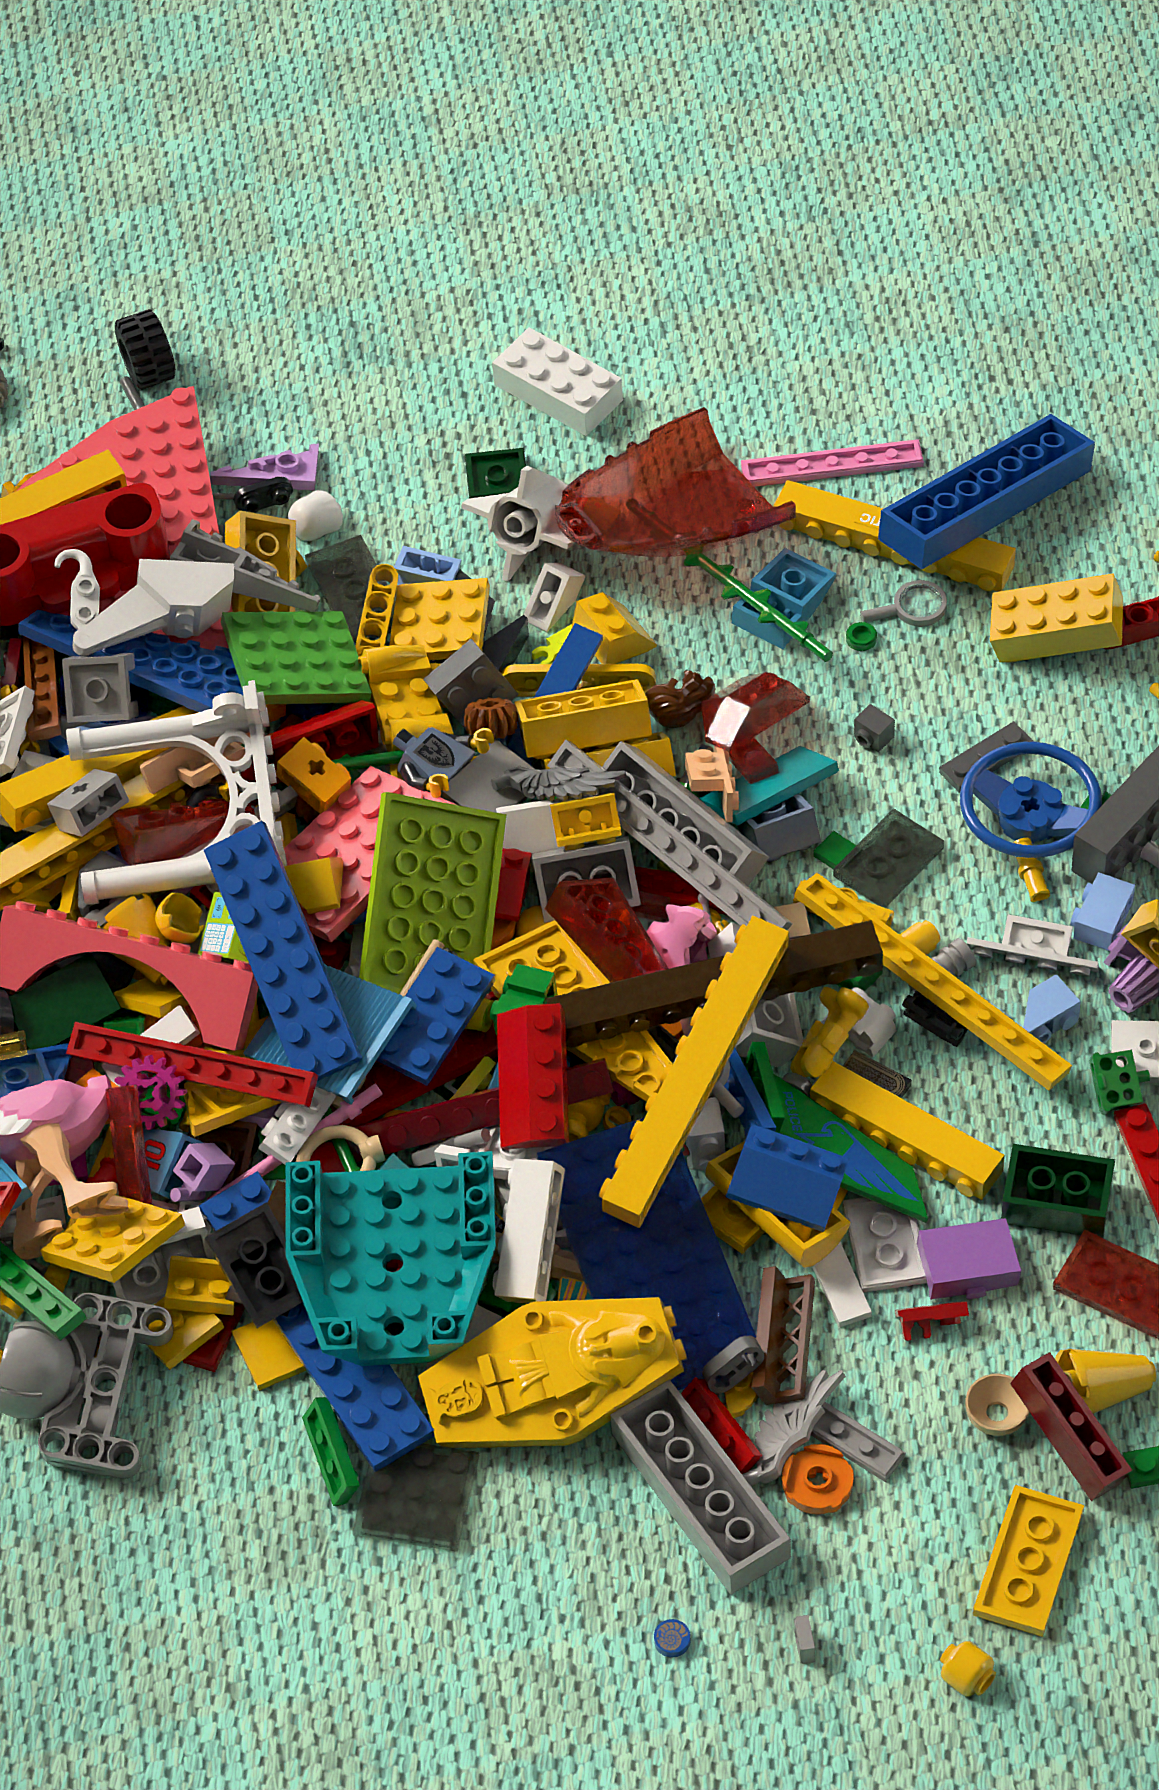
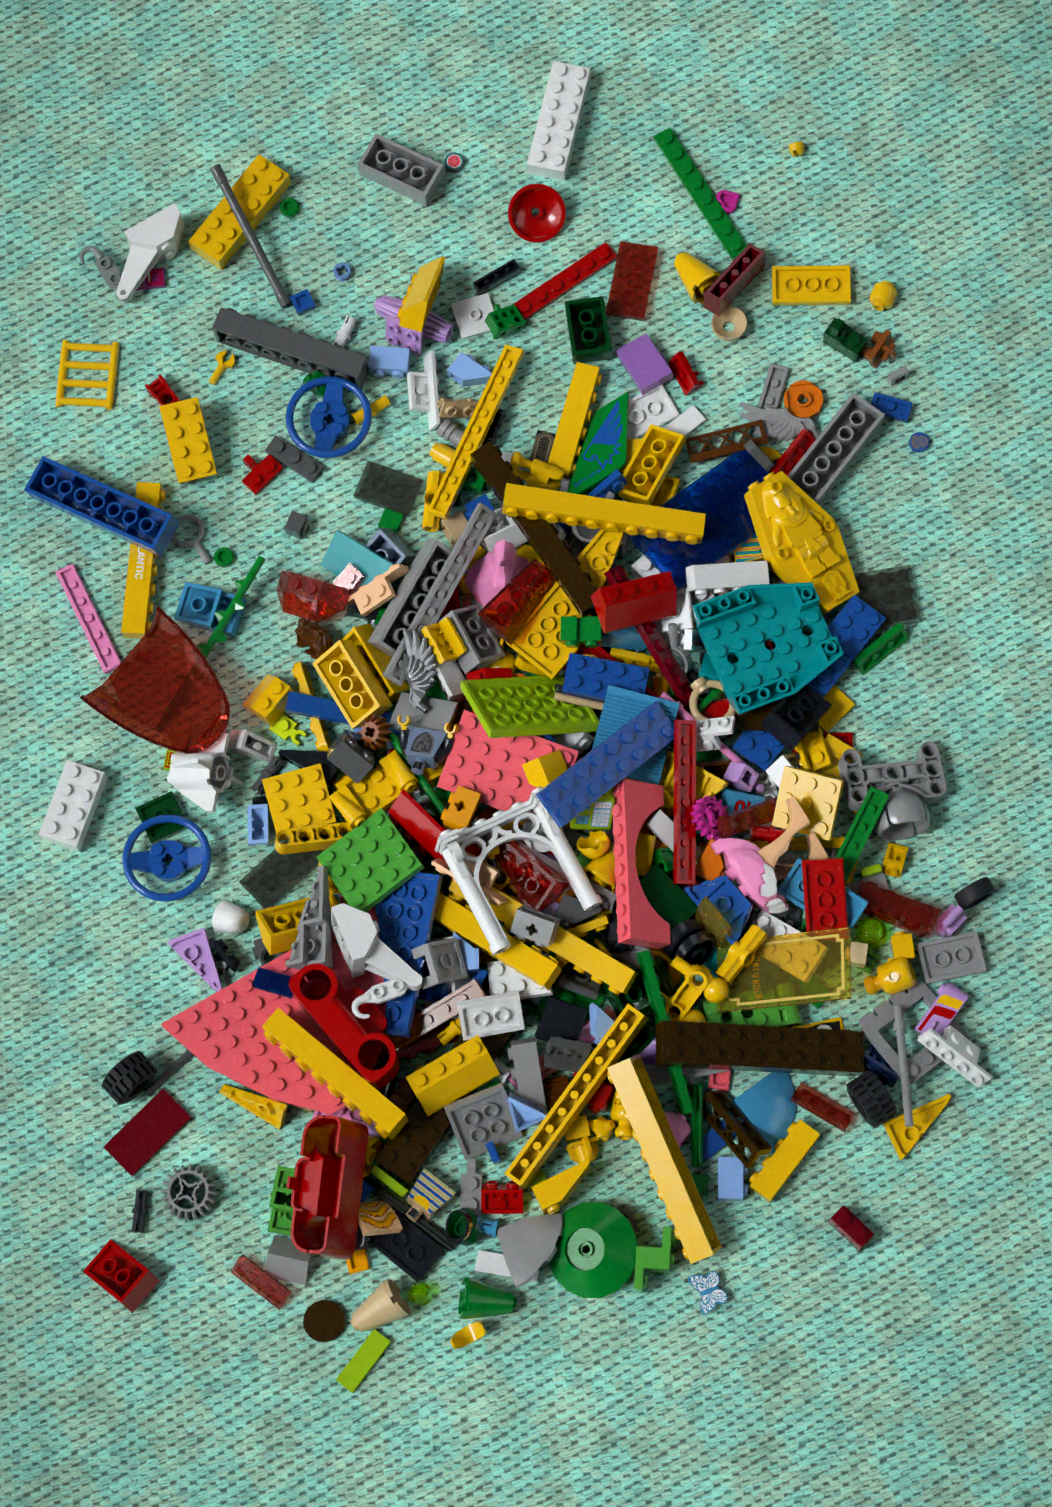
camera: 105 degrees left, 20 degrees up
(73, 370) = (147, 1132): none -> dark red tile
(182, 508) = (272, 983): none -> clear blue plate
(431, 462) = (153, 860): none -> blue piece
(503, 606) = (270, 770): none -> dark grey pin
(752, 1611) = (892, 407): none -> blue plate
(787, 1177) = (643, 456): blue slope -> none
(863, 1631) = (882, 350): none -> dark orange hips
(902, 1572) = (844, 339): none -> dark green hinge
(980, 712) = (260, 473): none -> red plate
(987, 960) = (456, 409): none -> tan hinge

